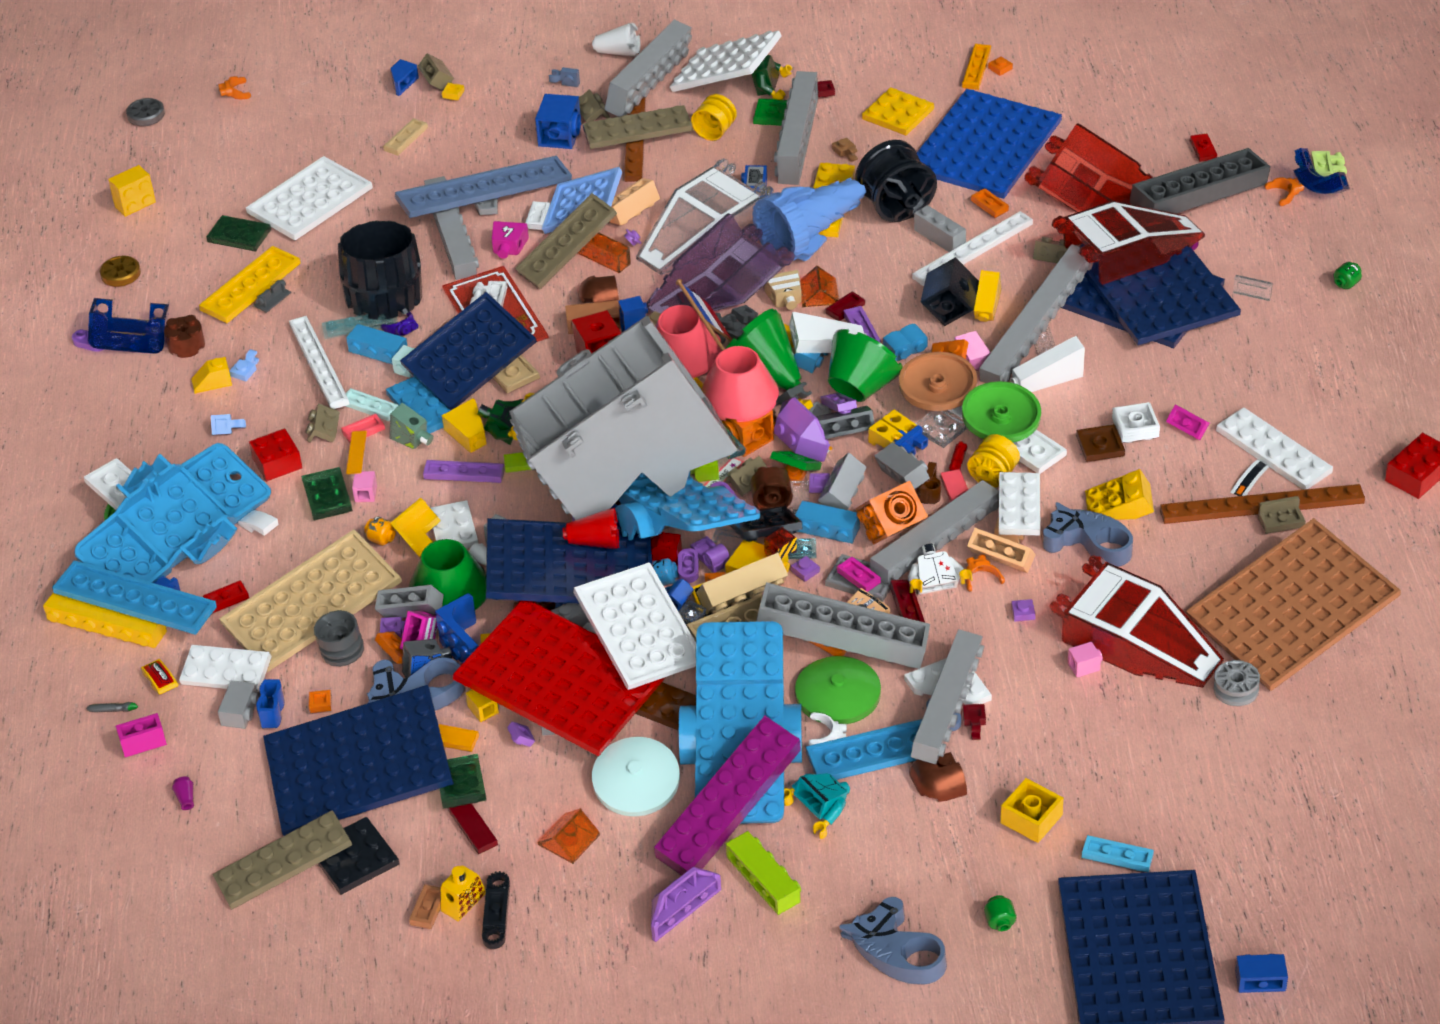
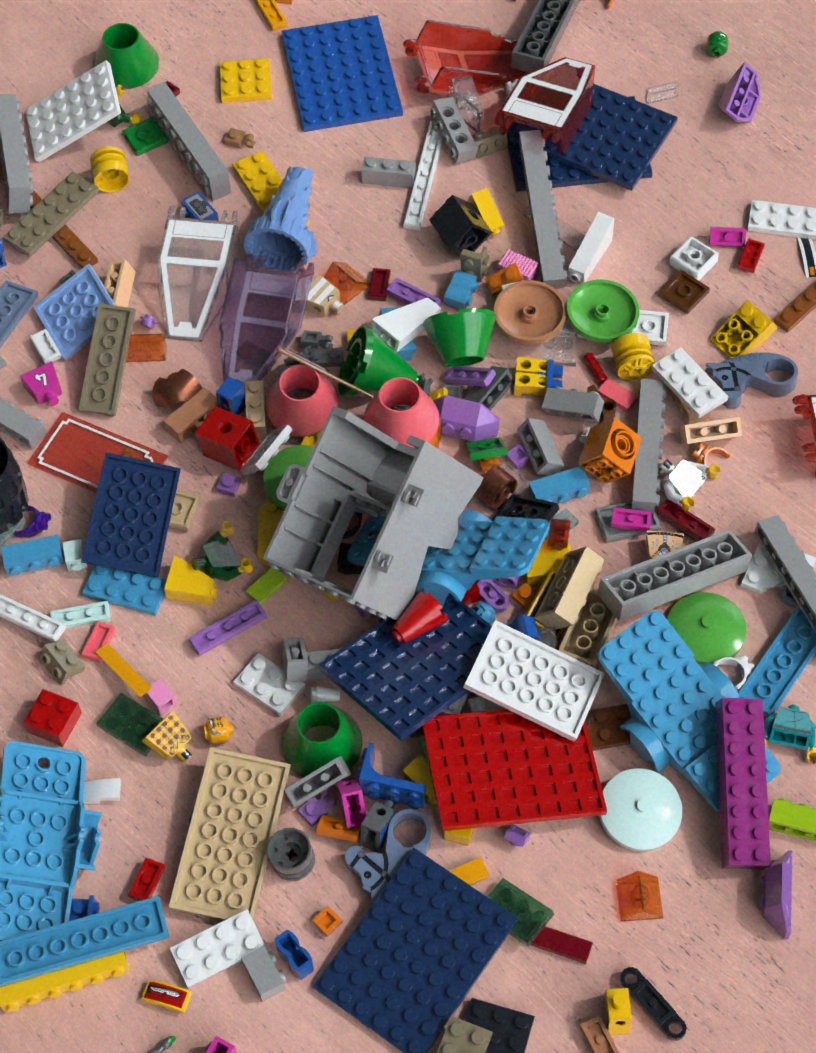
camera: 40 degrees left, 15 degrees up
(338, 512) = (169, 738): none -> torso
(409, 427) = (147, 618): sand green torso -> none
(414, 525) = (243, 708): yellow panel -> none
(479, 511) = (294, 659): none -> light grey brick
(495, 289) = (88, 445): white plate -> none
(805, 568) = (579, 538): medium lavender plate -> none
(815, 46) = (129, 54): none -> green cone
(896, 180) = (327, 148): black wheel -> none
(935, 326) = (475, 263): none -> dark tan bracket
(989, 203) = (400, 126): orange plate -> none
(1023, 610) = (766, 470): medium lavender plate -> none
(1028, 225) = (453, 130): none -> light grey brick
(1063, 202) = (468, 102): none -> clear slope
(1193, 448) = (750, 255): none -> red plate
(1323, 324) = (741, 94): none -> medium lavender wedge

